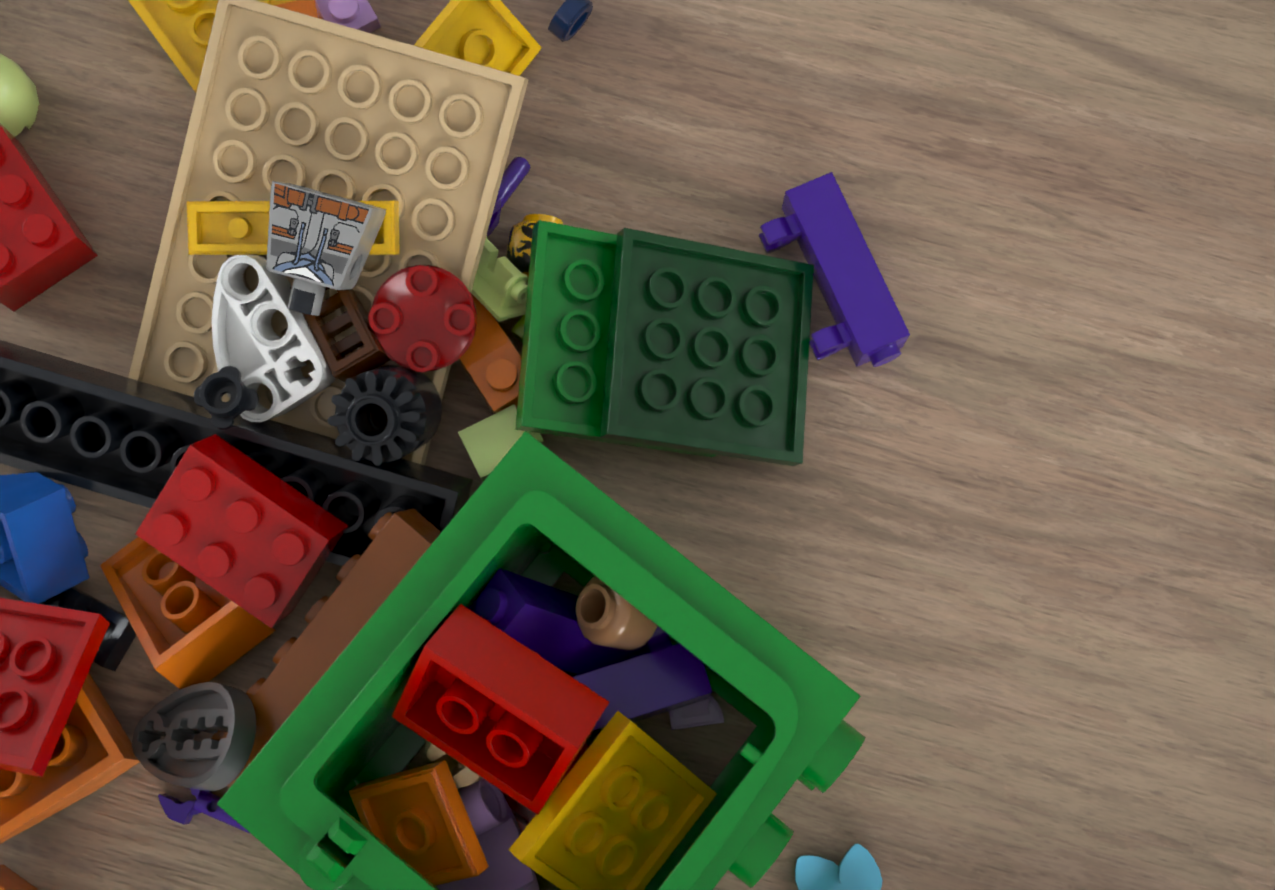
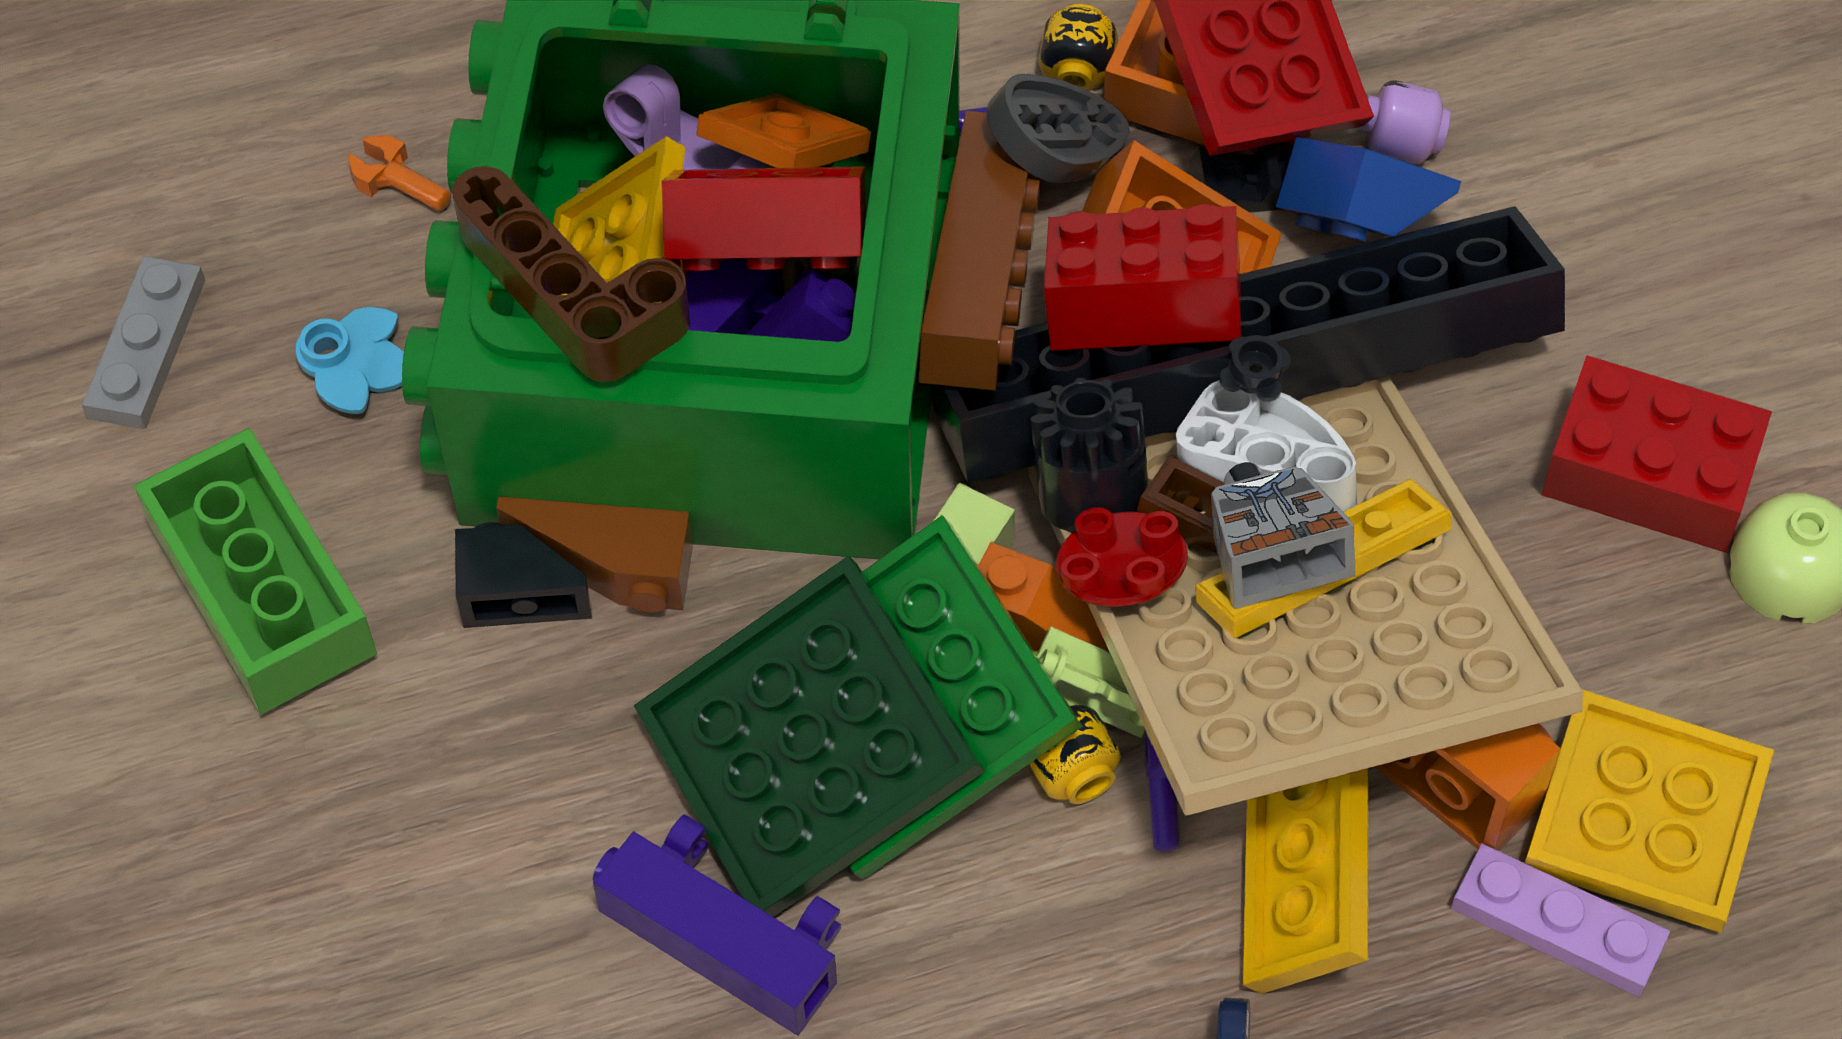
camera: 145 degrees right, 20 degrees down
(118, 826) = (1078, 46): none -> head
(712, 714) = (540, 264): none -> reddish brown beam
(737, 568) = (624, 551): none -> dark orange slope
(828, 618) = (515, 579): none -> black slope
(1014, 734) = (256, 570): none -> bright green brick

